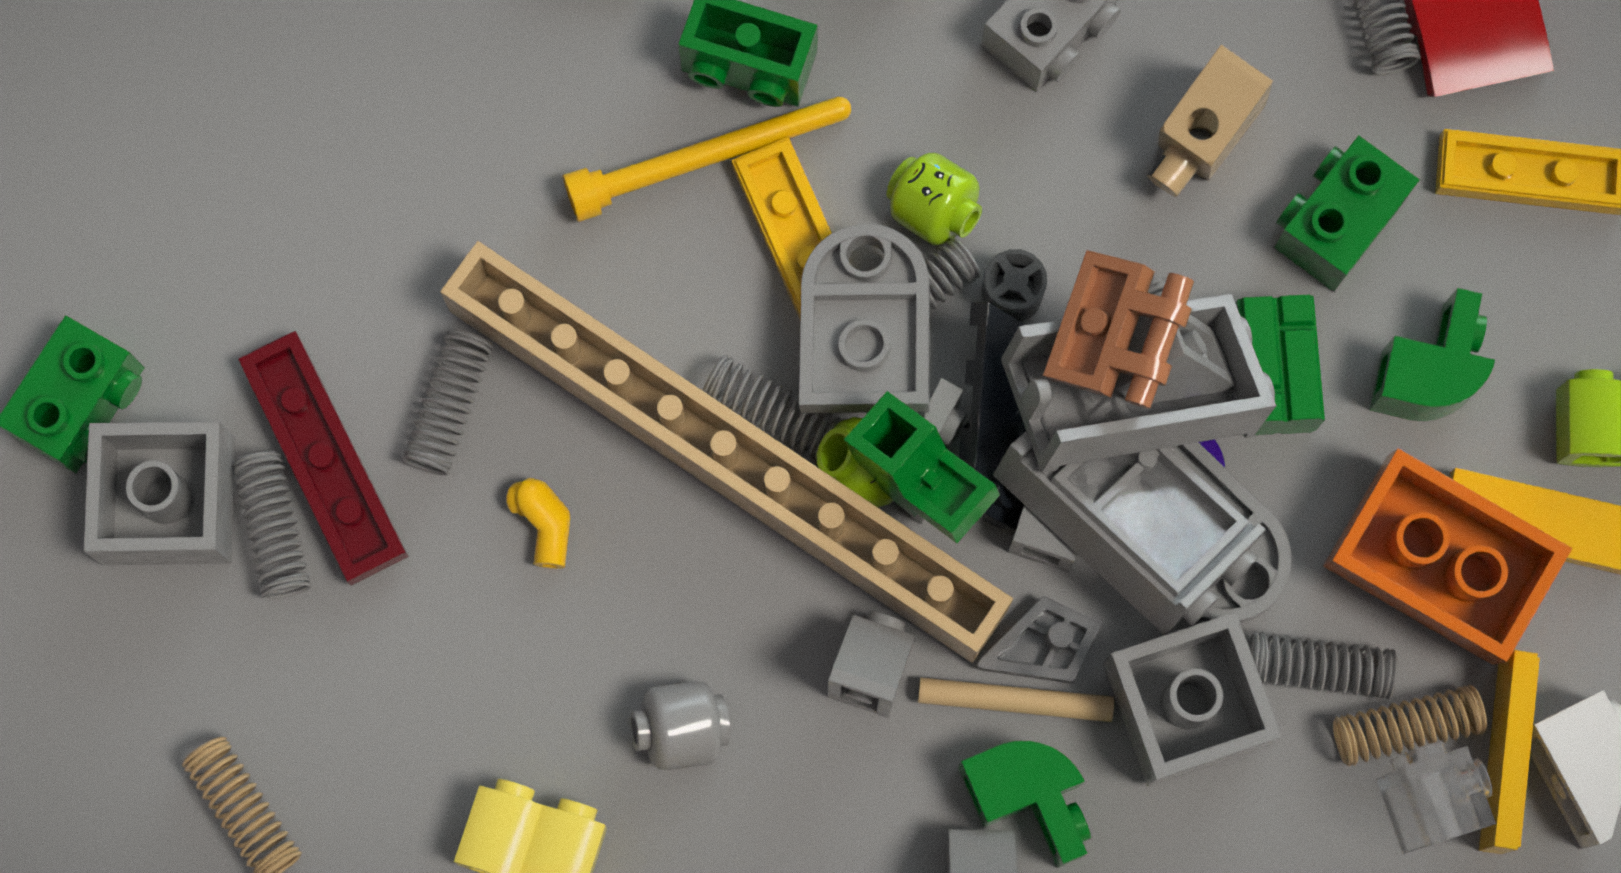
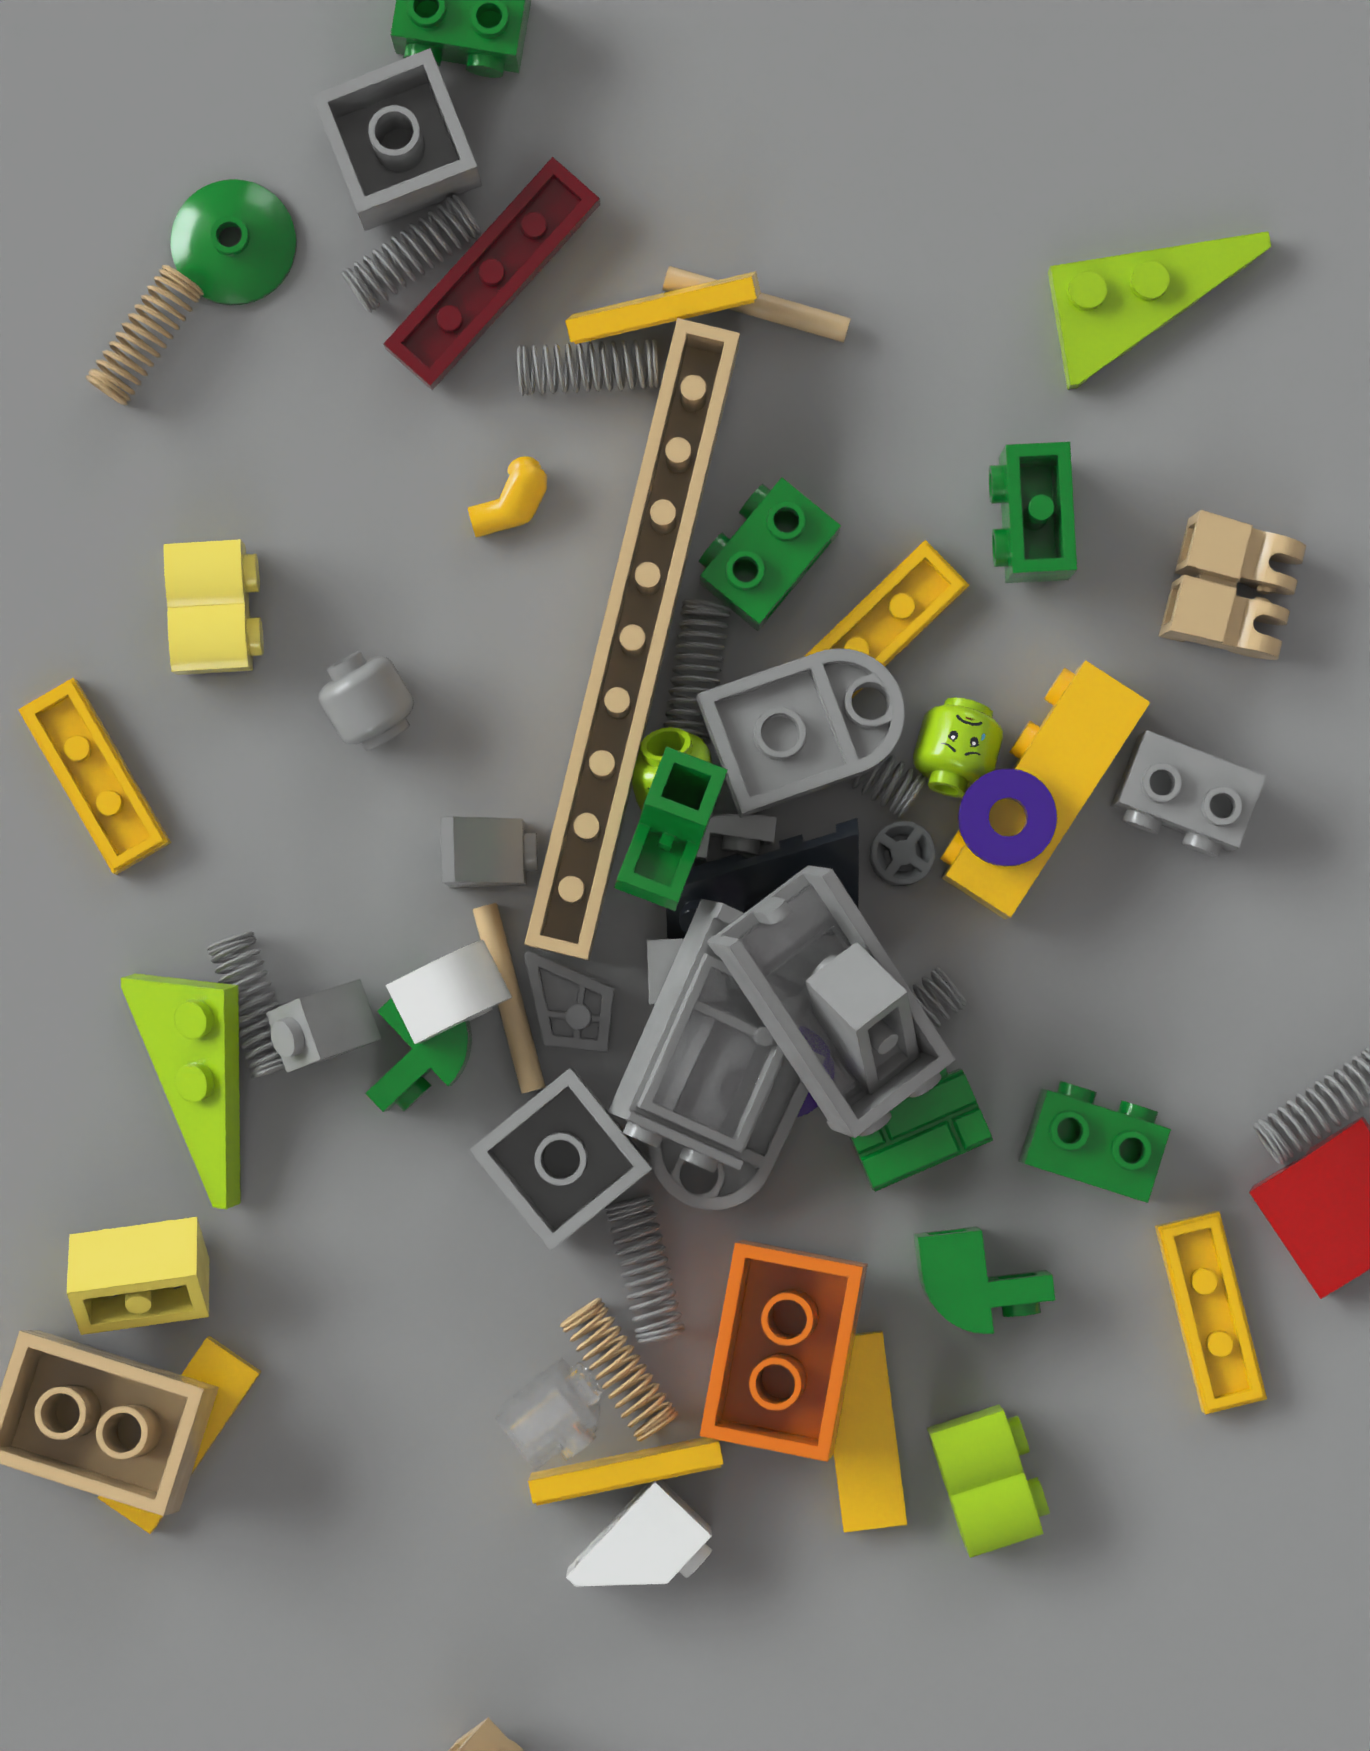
camera: 70 degrees right, 10 degrees up
(219, 696) = (253, 265): none -> green dish
(423, 307) = (663, 308): none -> yellow tile
(452, 231) = (772, 308): none -> tan bar
(594, 190) = (845, 421): yellow piece -> none
(688, 301) = (768, 552): none -> green brick
(996, 743) = (449, 991): none -> white brick
(1002, 139) = (1069, 756): none -> yellow brick
(1024, 141) = (1038, 808): none -> dark purple piece
(1101, 323) = (858, 944): nougat plate -> none
(1221, 101) = (1158, 987): tan torso -> none

